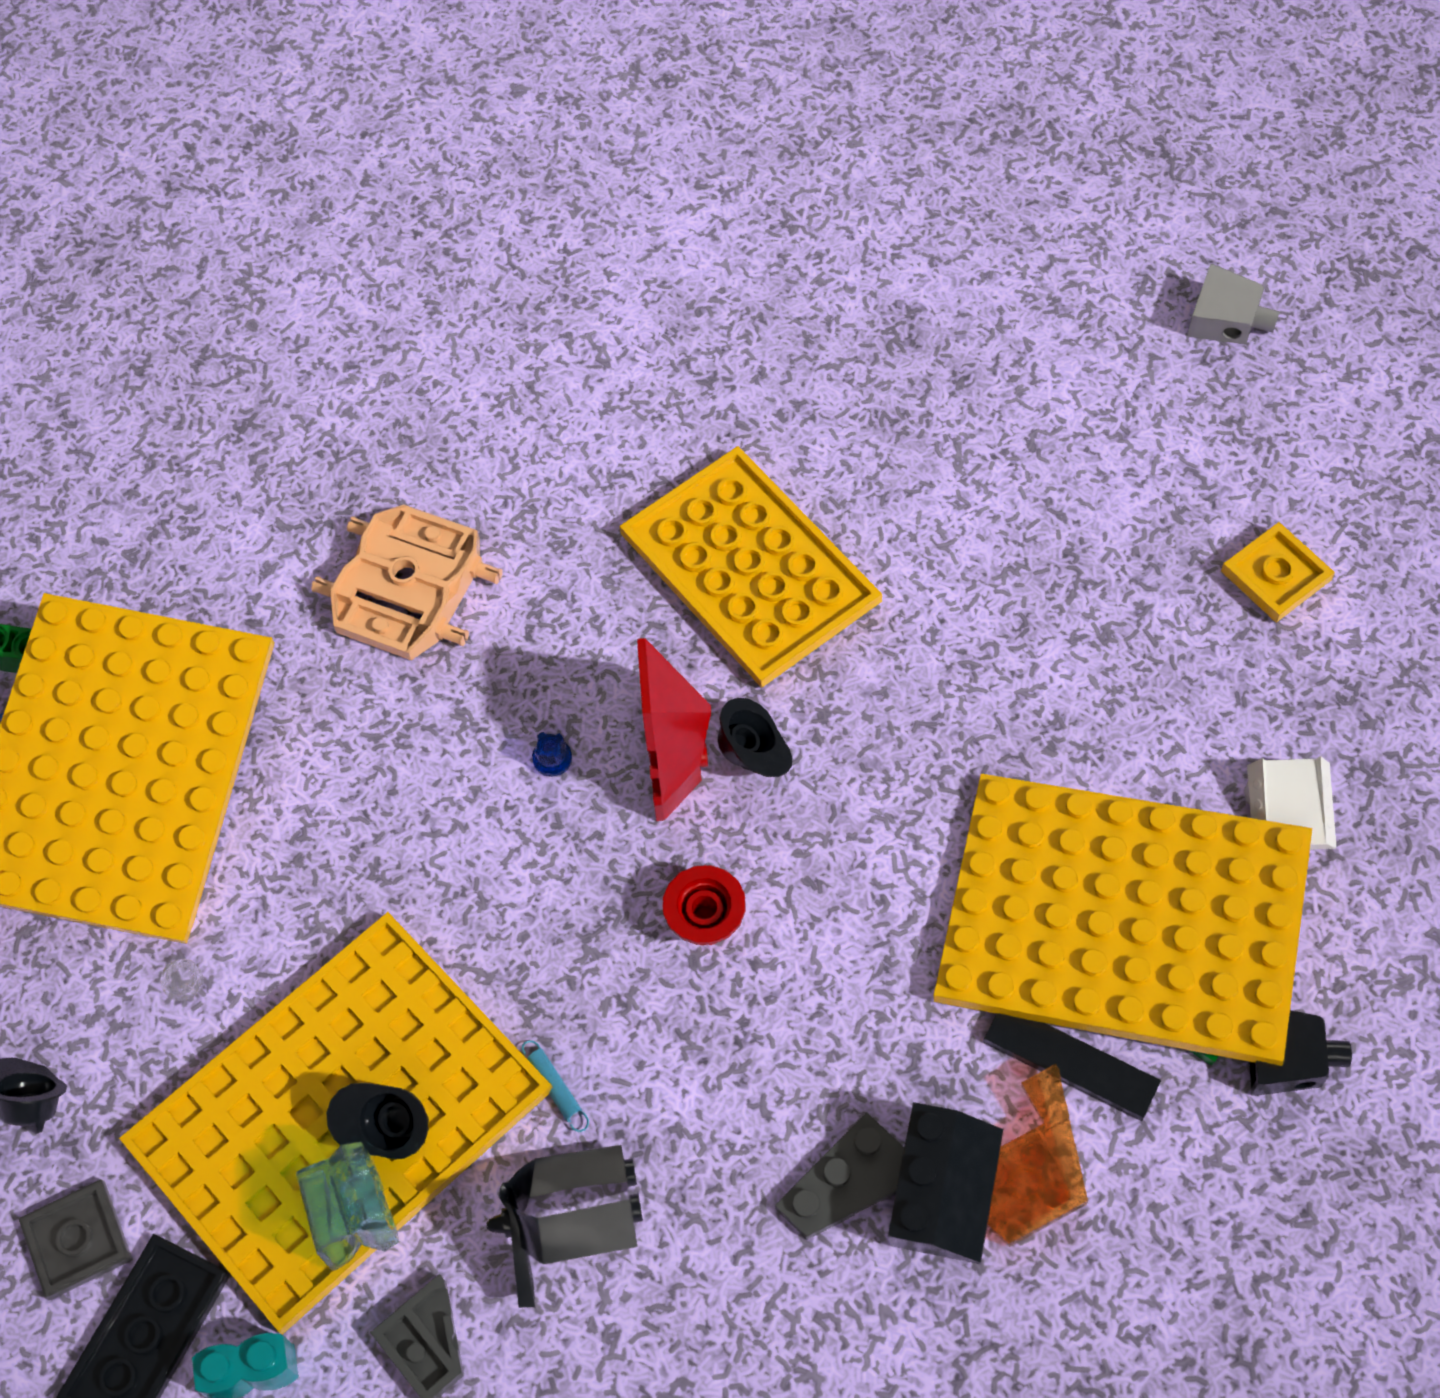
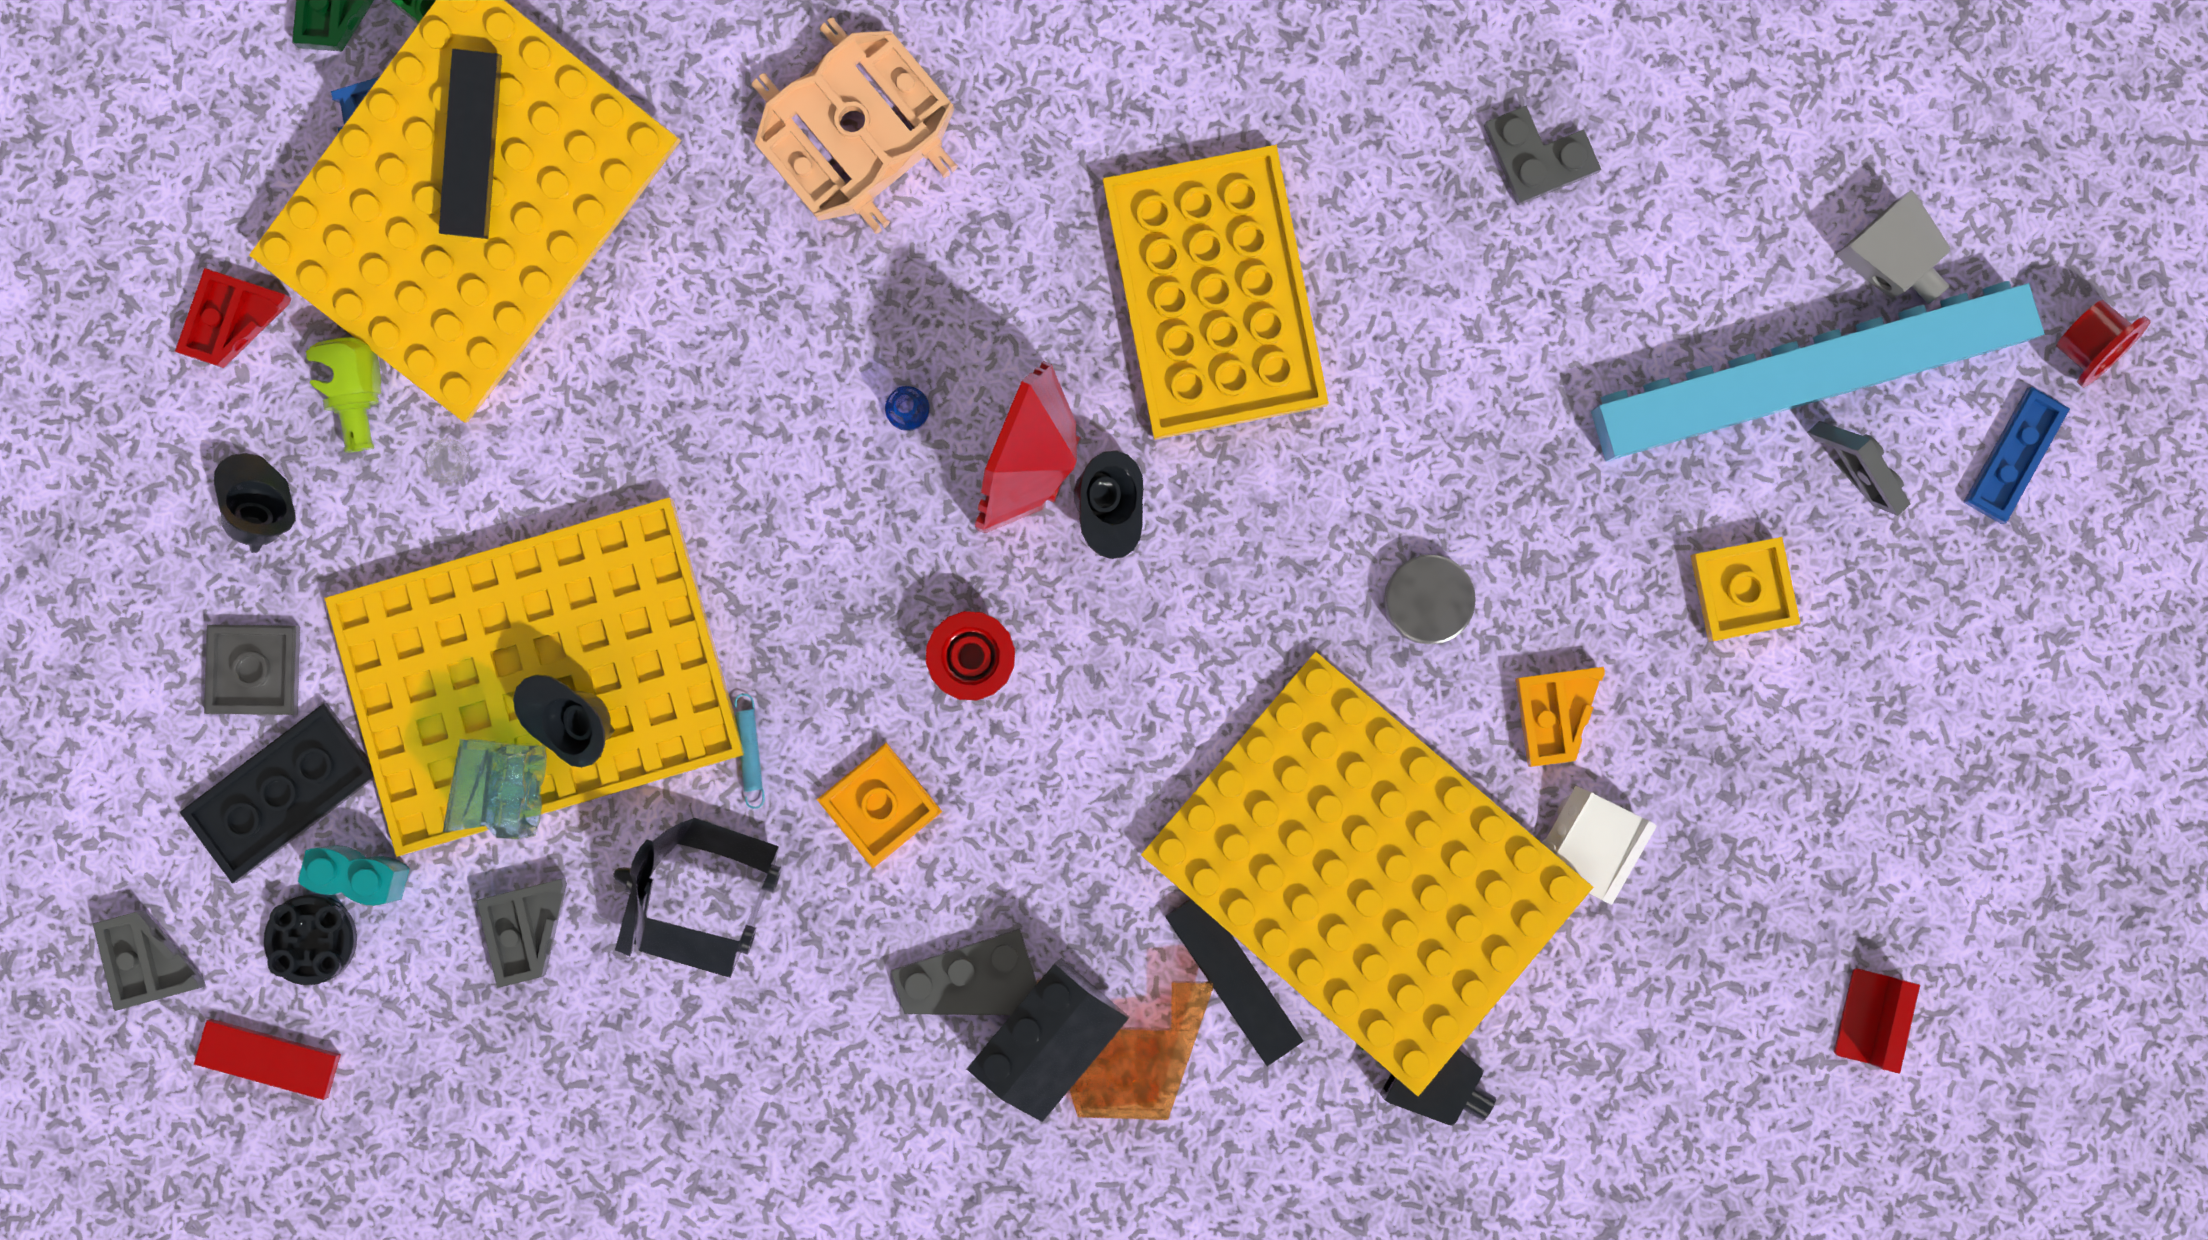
camera: 20 degrees right, 25 degrees up
(74, 959) = (353, 386): none -> lime piece
(103, 714) = (470, 143): none -> black tile
(690, 1073) = (879, 805): none -> light orange tile
(936, 379) = (1535, 167): none -> dark grey plate
(1045, 693) = (1429, 599): none -> flat silver tile
(1195, 726) = (1555, 713): none -> light orange wing
(1222, 410) = (1817, 371): none -> medium azure brick
(1304, 447) = (1864, 466): none -> dark grey wing
(1406, 397) = (2016, 455): none -> blue tile
(1408, 293) = (2100, 340): none -> red piece

